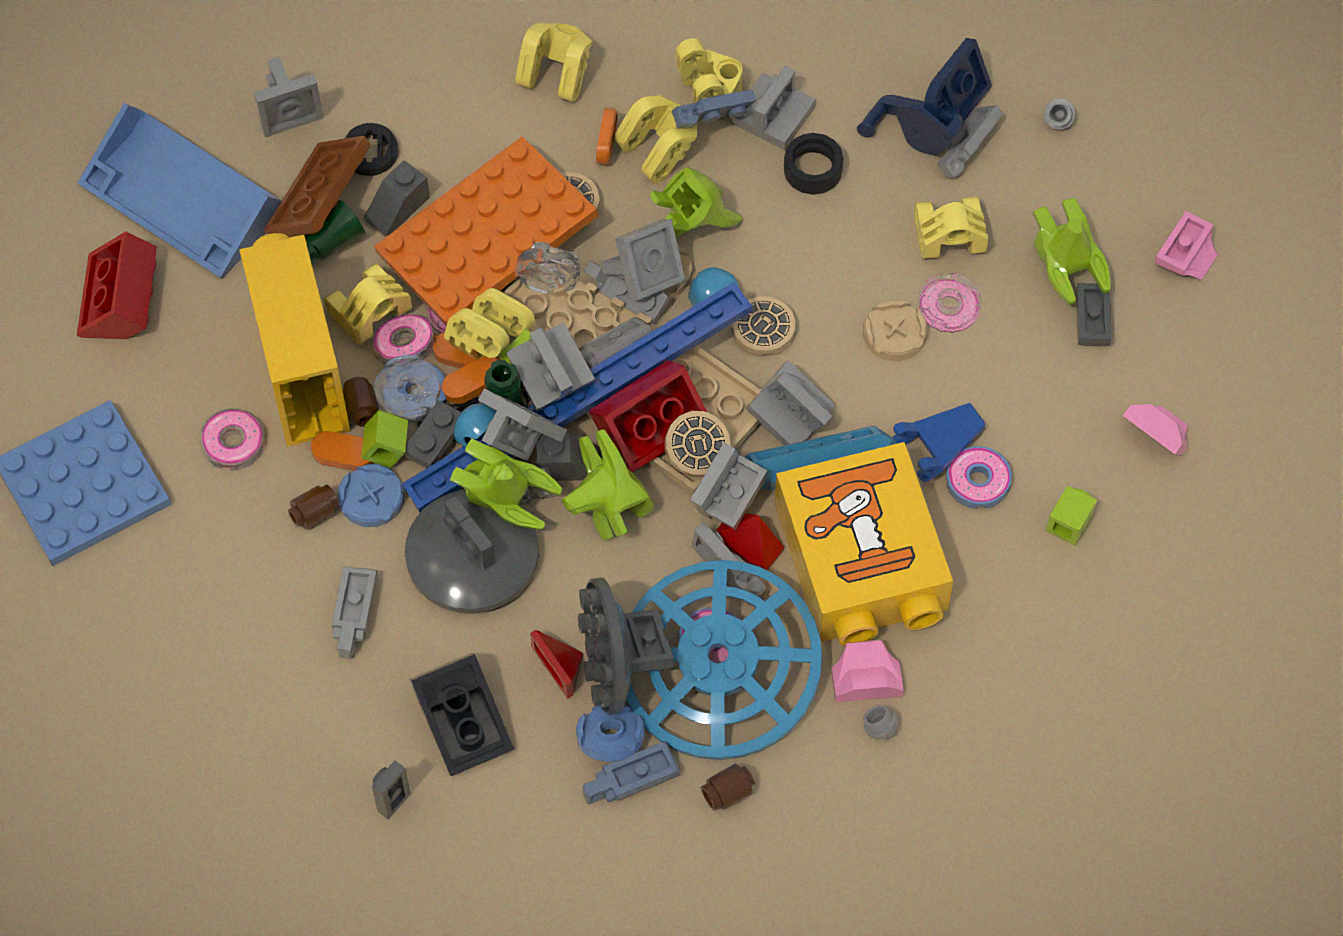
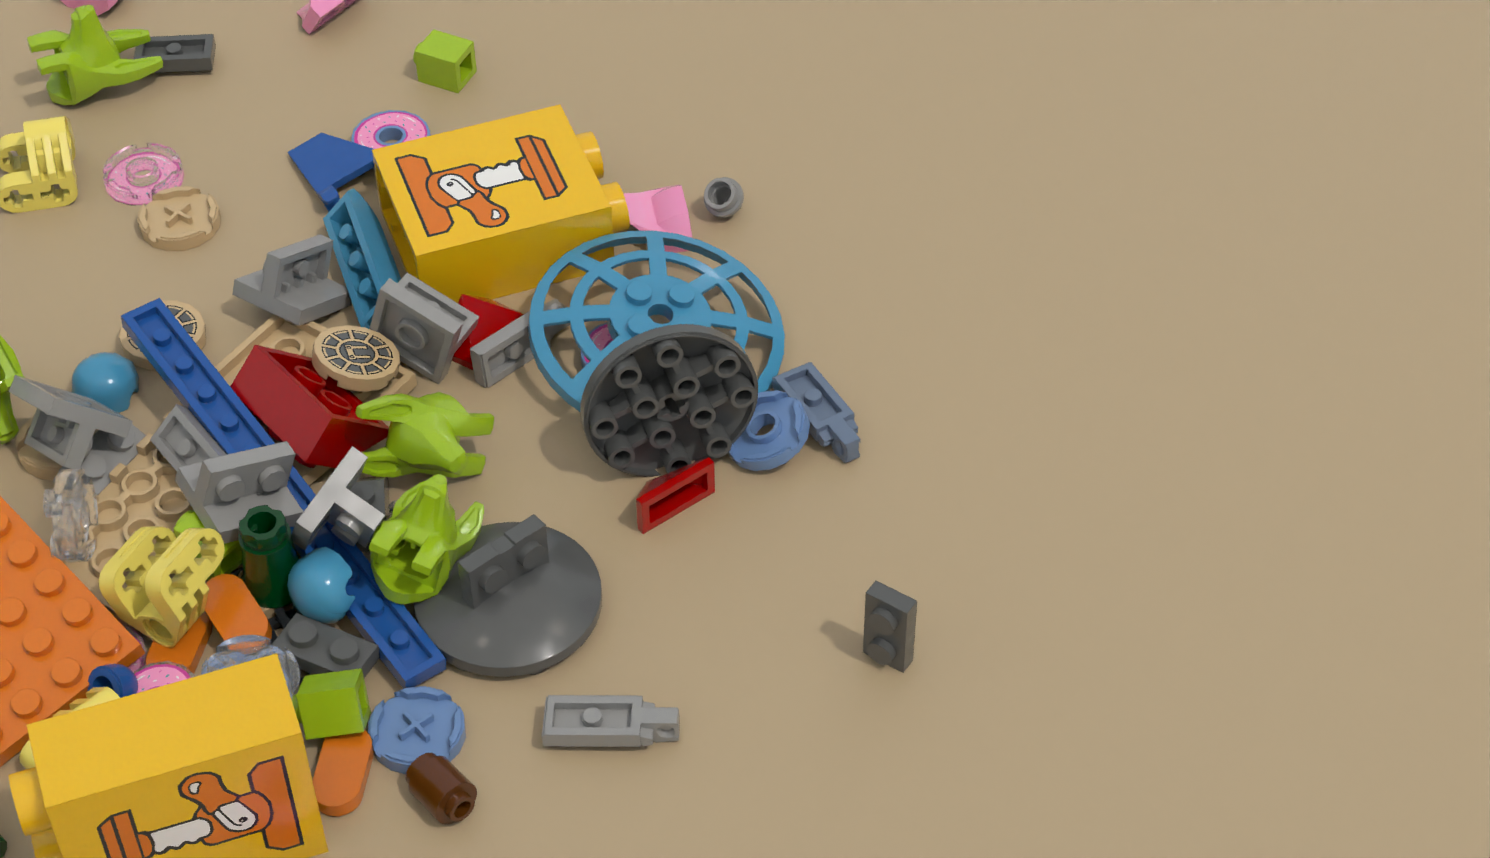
camera: 95 degrees left, 15 degrees down
(420, 312) = (116, 677): none -> blue piece
(461, 714) = (751, 582): black slope -> none
(727, 787) = (824, 320): reddish brown brick -> none

